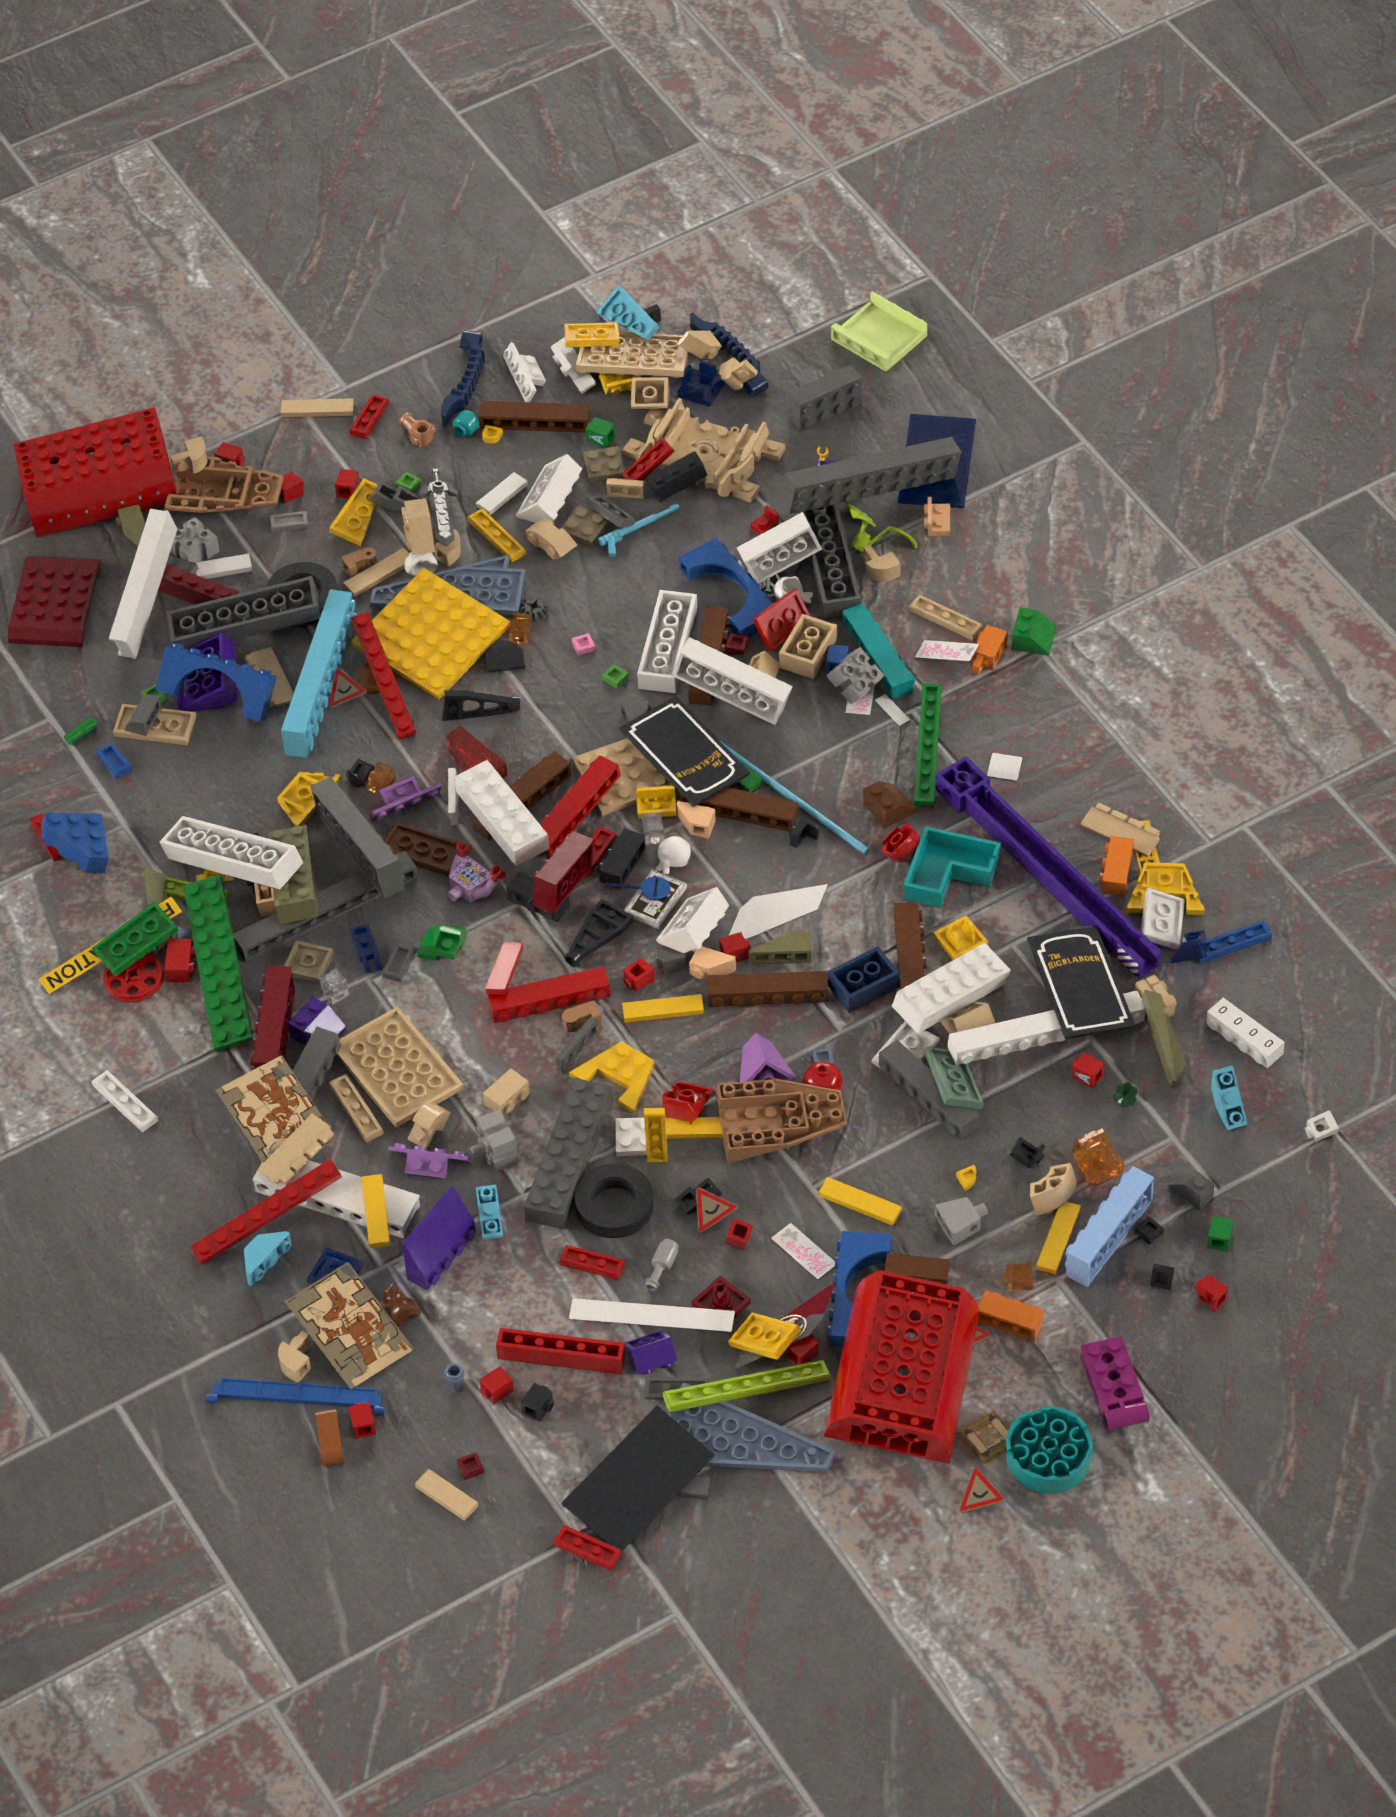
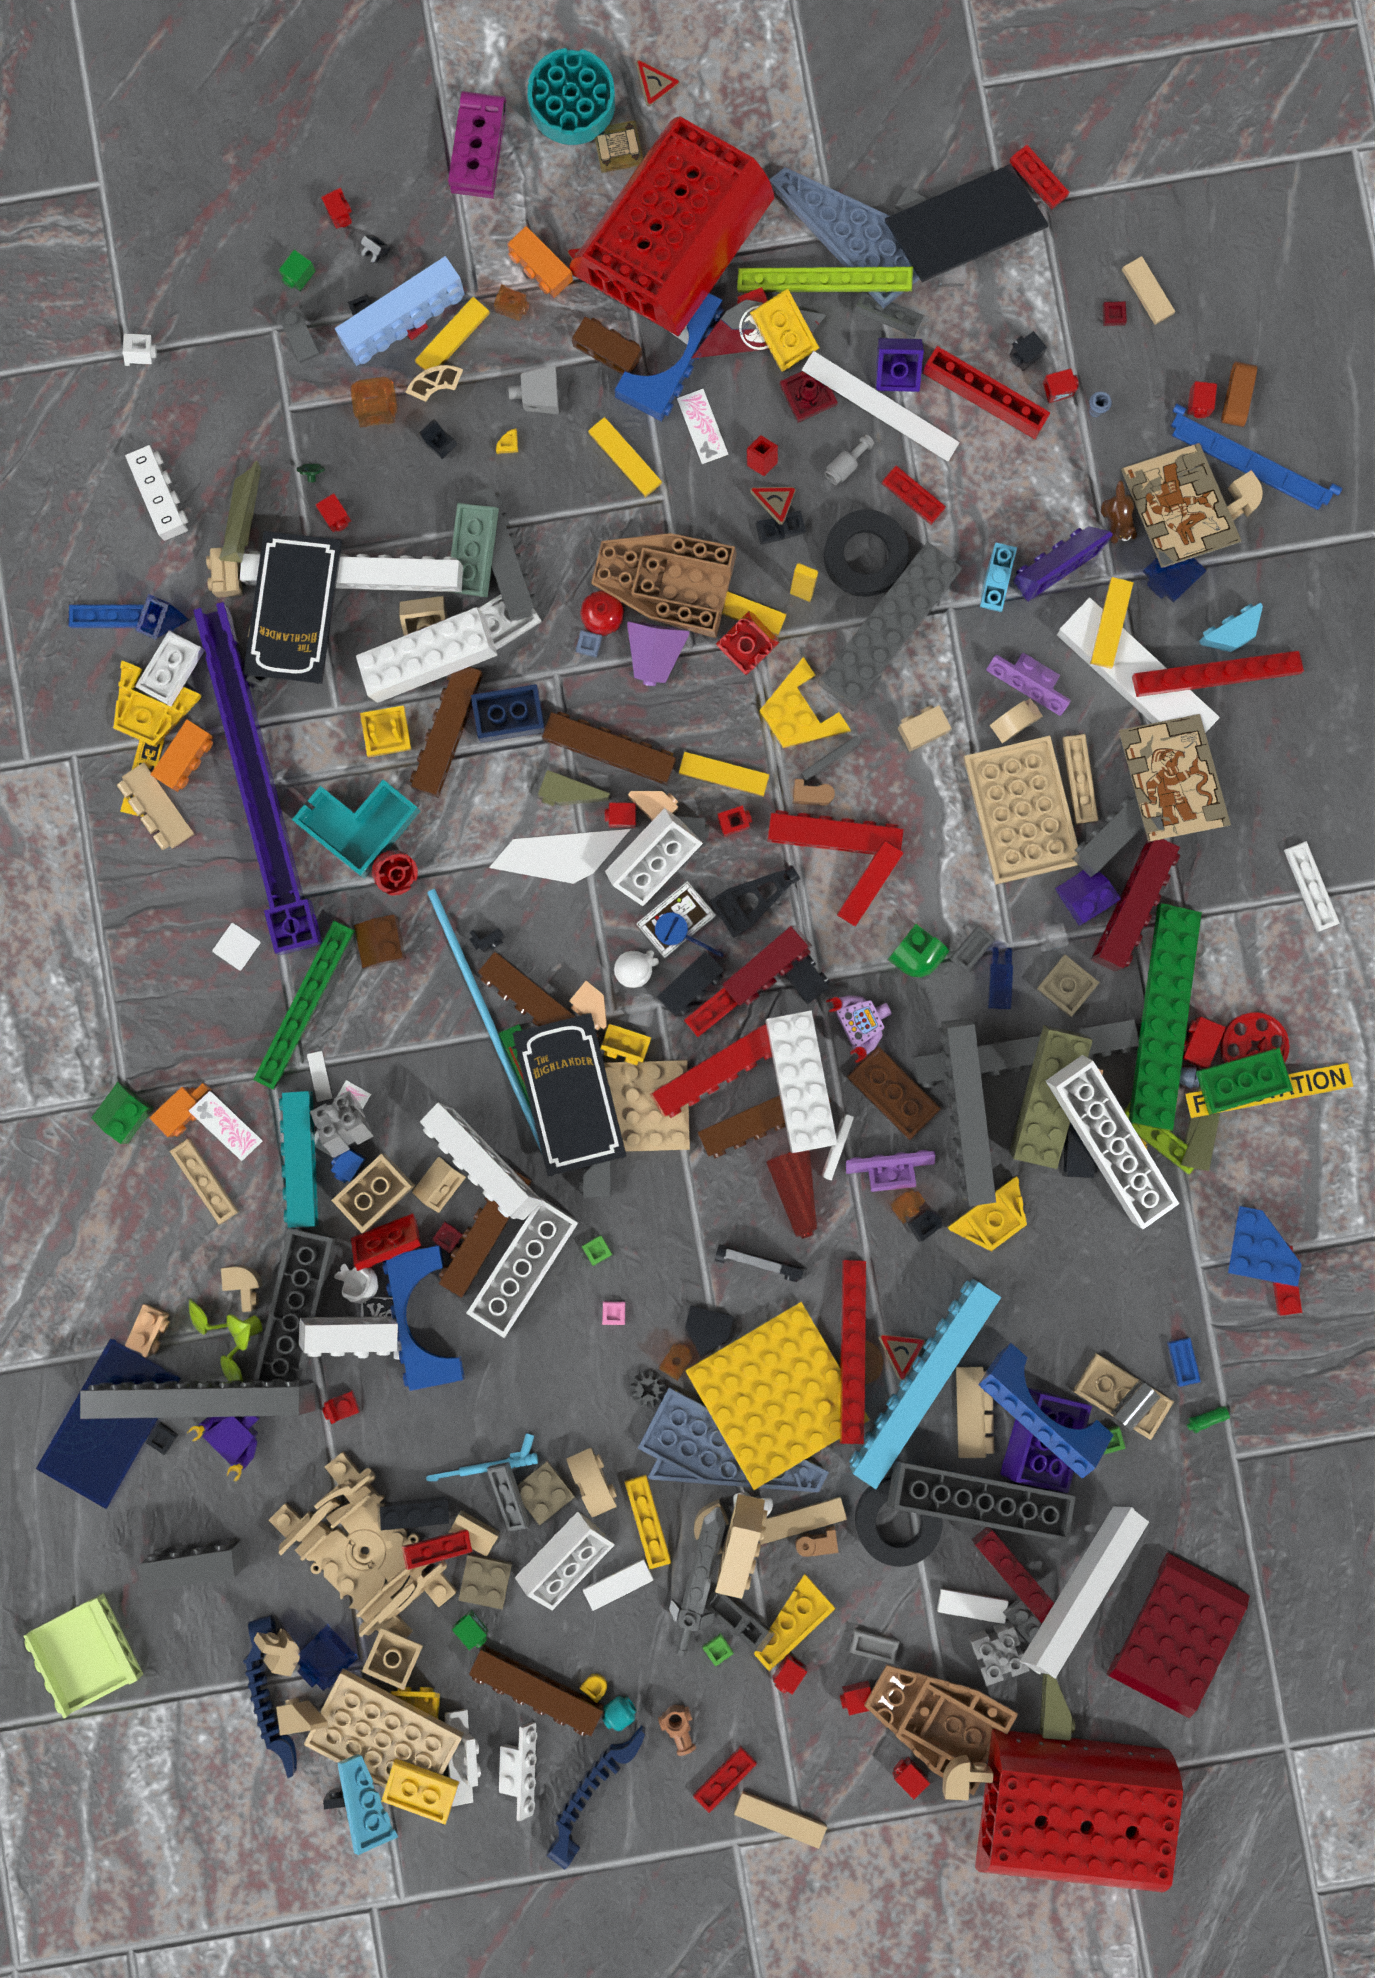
camera: 160 degrees left, 35 degrees up
(294, 1149) = (1174, 726): tan windscreen -> none
(496, 1141) = (959, 664): light grey brick -> none
(630, 1137) = (812, 626): white plate -> none
(1227, 1097) = (213, 414): medium azure slope -> none

